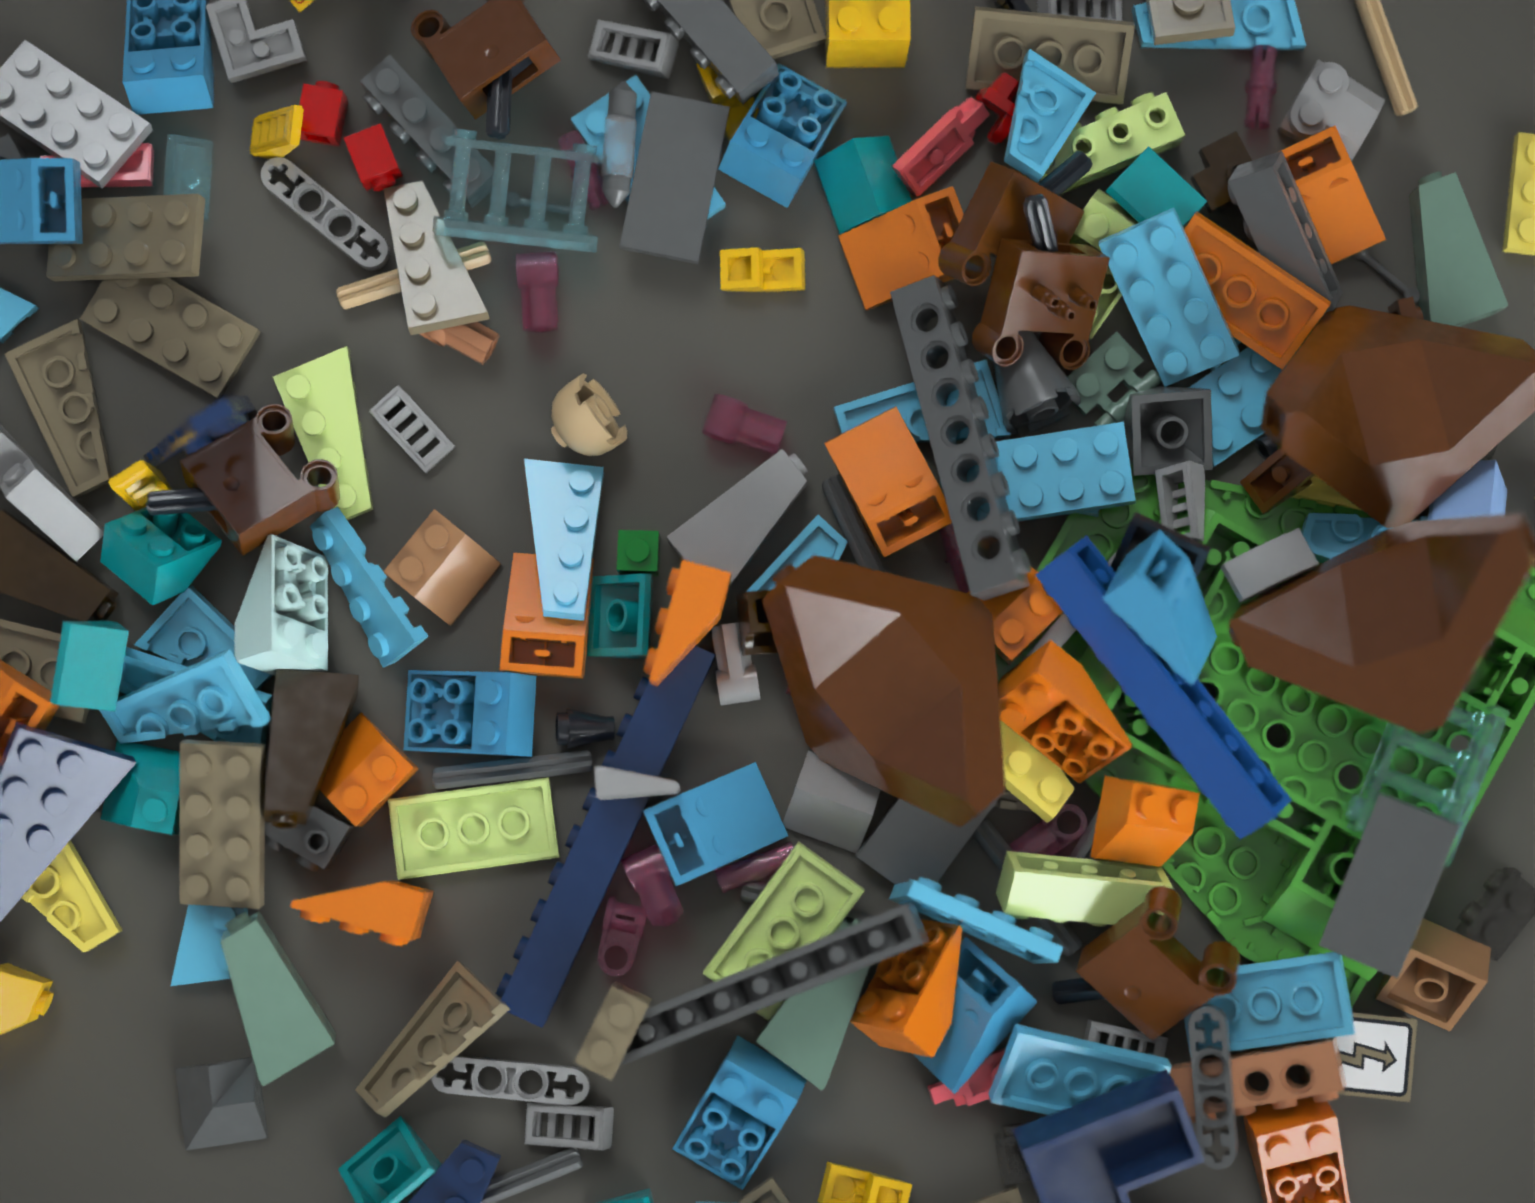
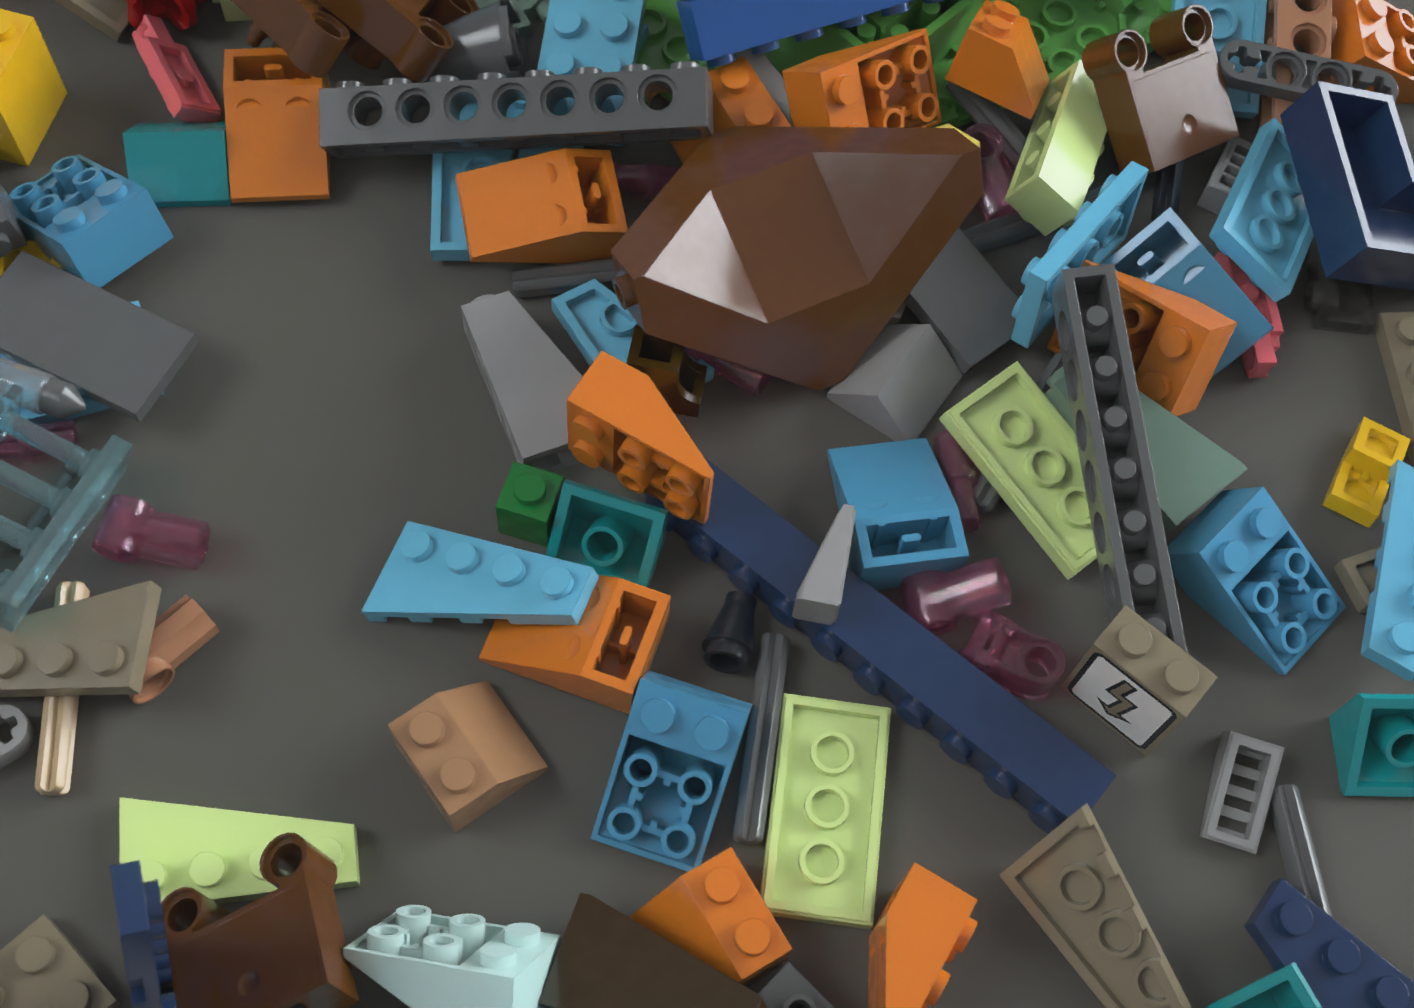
camera: 75 degrees left, 20 degrees down
(363, 583) = (492, 848): medium azure wing -> none
(387, 403) = (256, 769): light grey slope -> none
(510, 1084) = (1177, 852): light grey beam -> none
(585, 418) = (339, 518): tan cylinder -> none
(734, 422) = (408, 361): clear pink piece -> none
(735, 673) = (722, 437): light grey piece -> none
(762, 270) = (238, 287): yellow slope -> none

